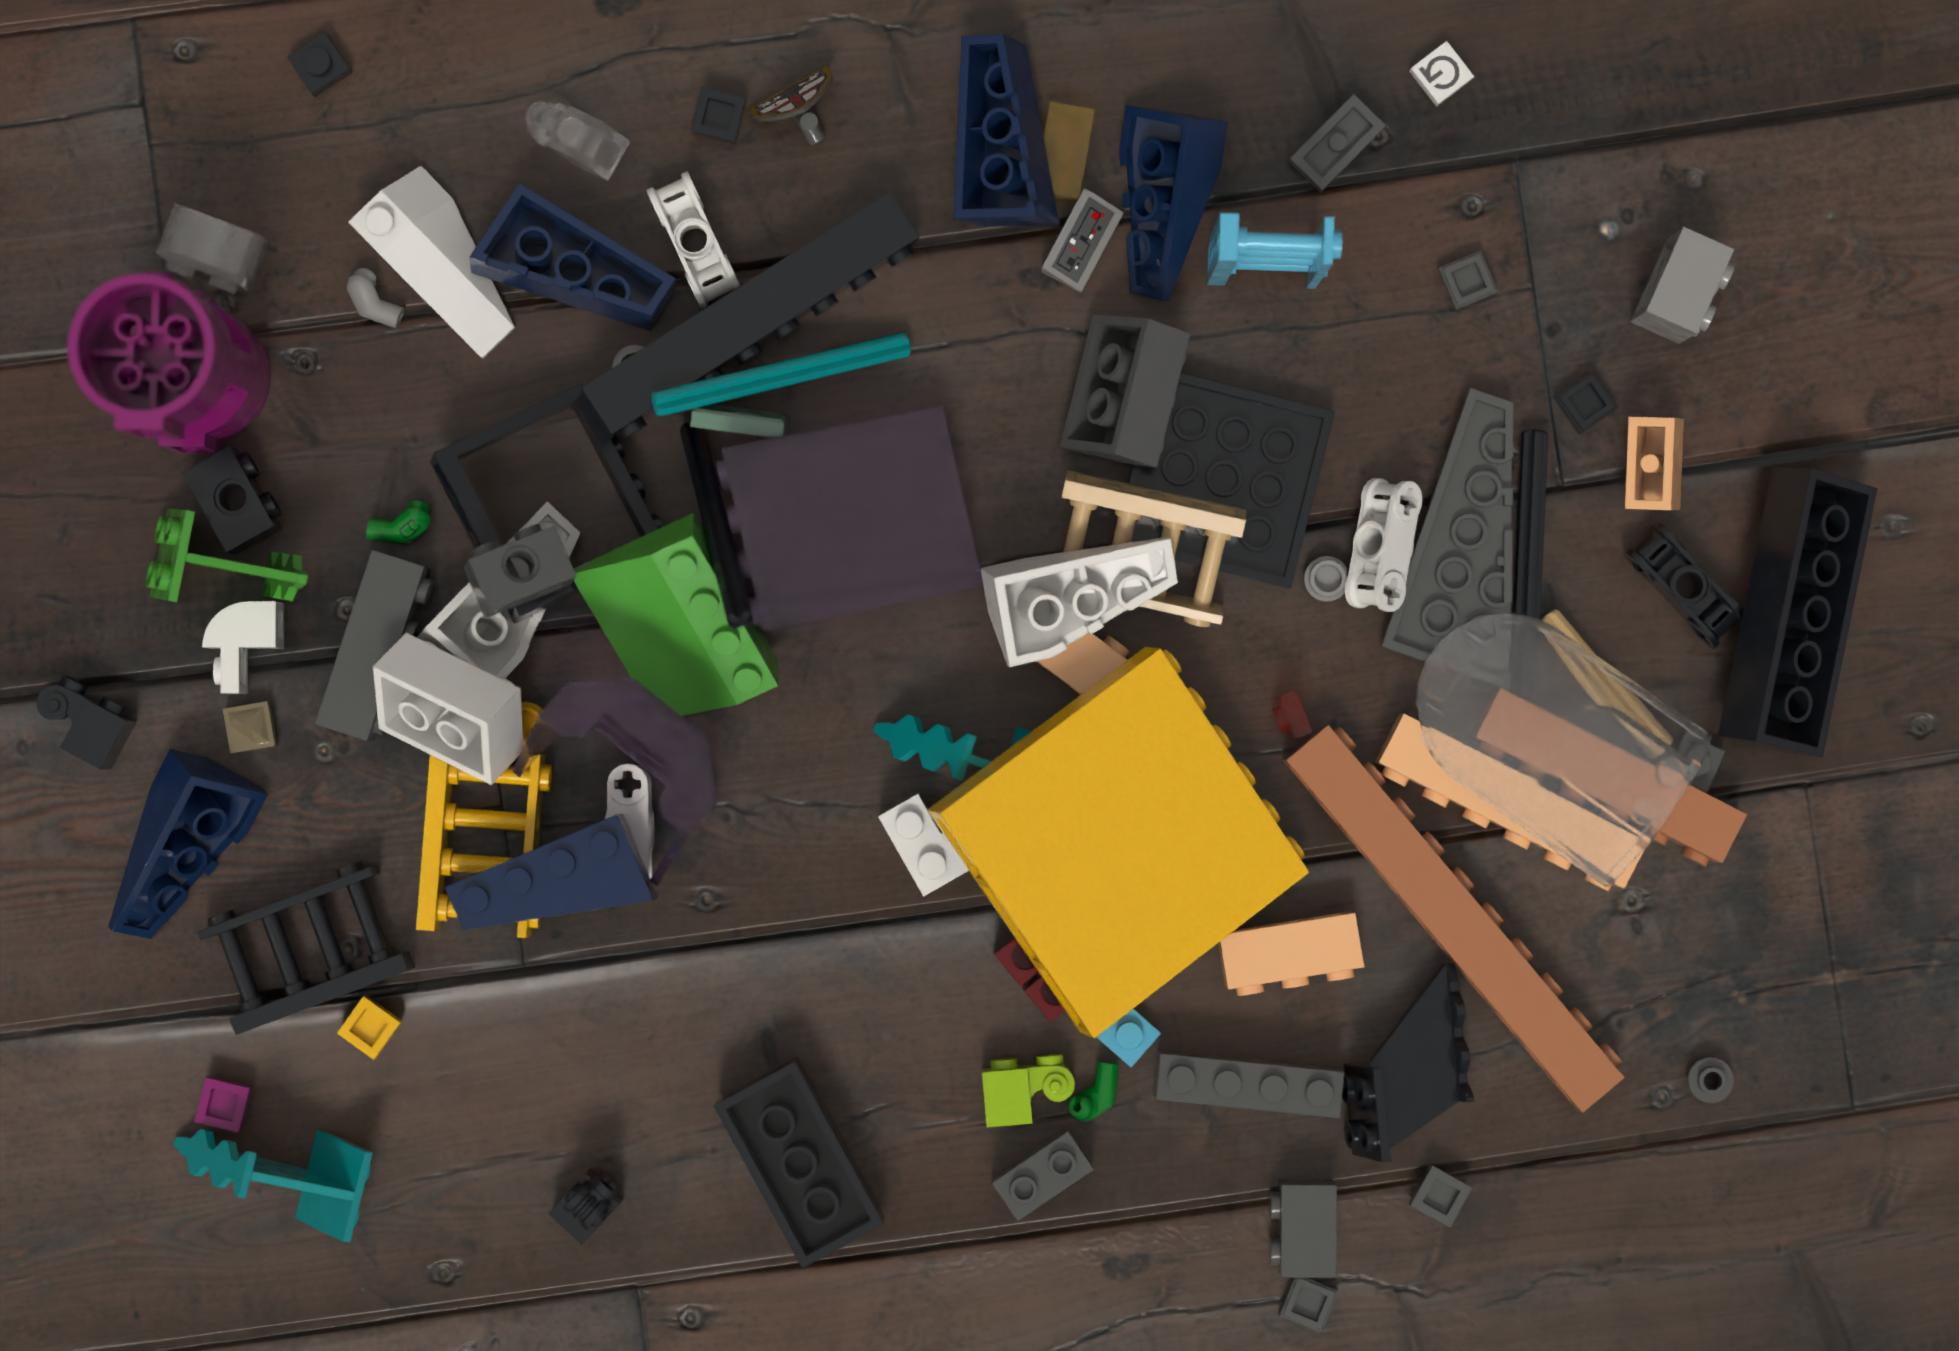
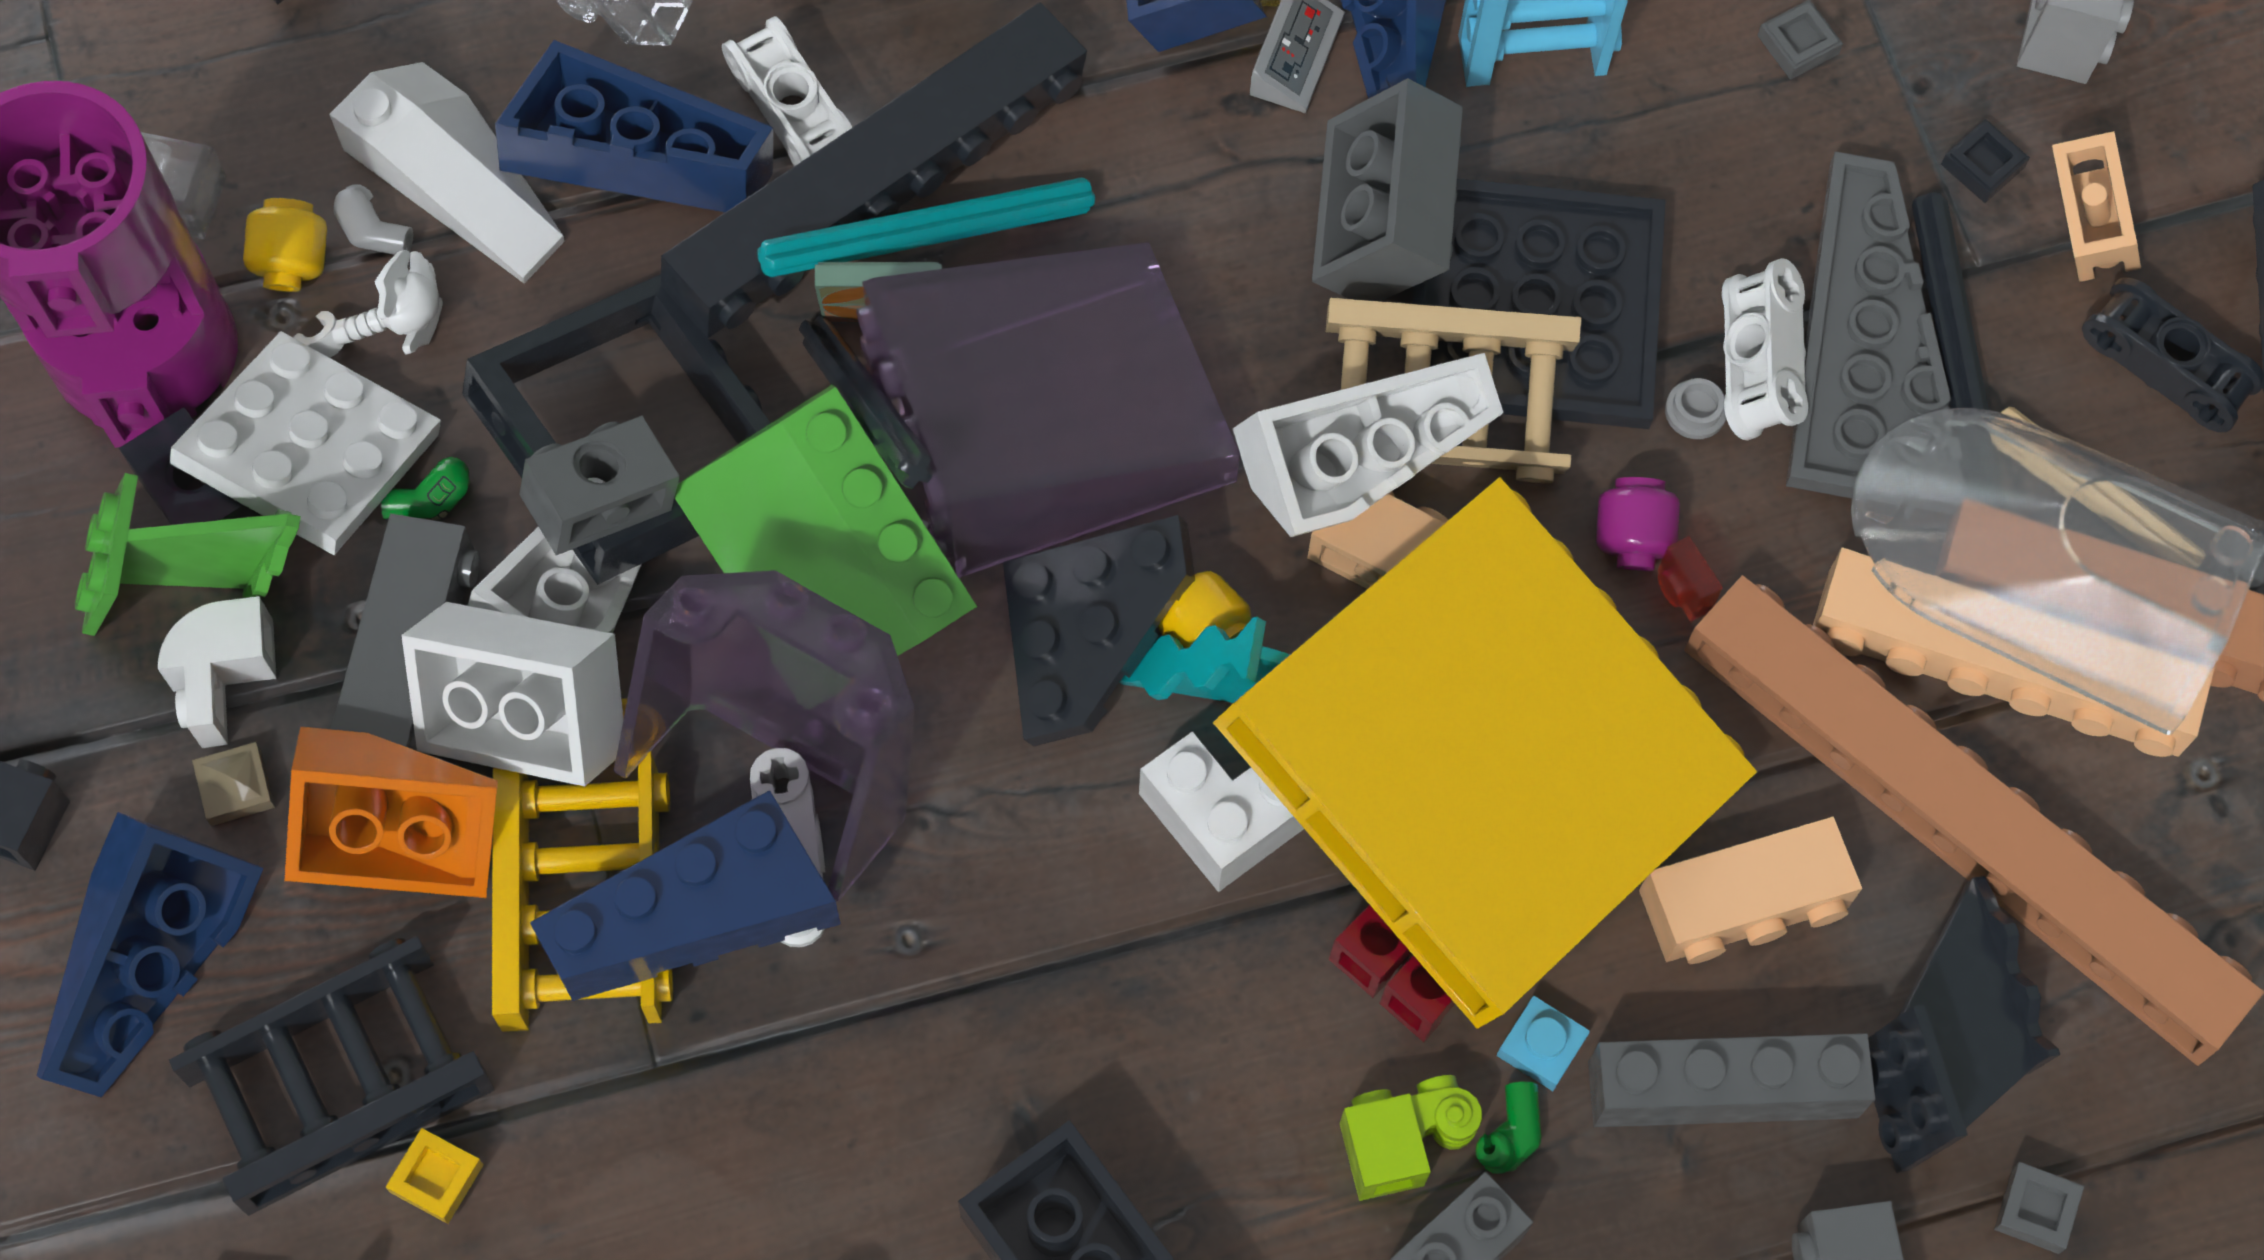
camera: 10 degrees left, 20 degrees down
(309, 313) = (285, 243): none -> yellow head
(315, 482) = (306, 441): none -> white plate
(353, 780) = (386, 817): none -> orange slope
(393, 382) = (406, 306): none -> white piece
(859, 692) = (1089, 619): none -> black plate
(941, 698) = (1206, 604): none -> yellow head
(1264, 666) = (1637, 522): none -> magenta head

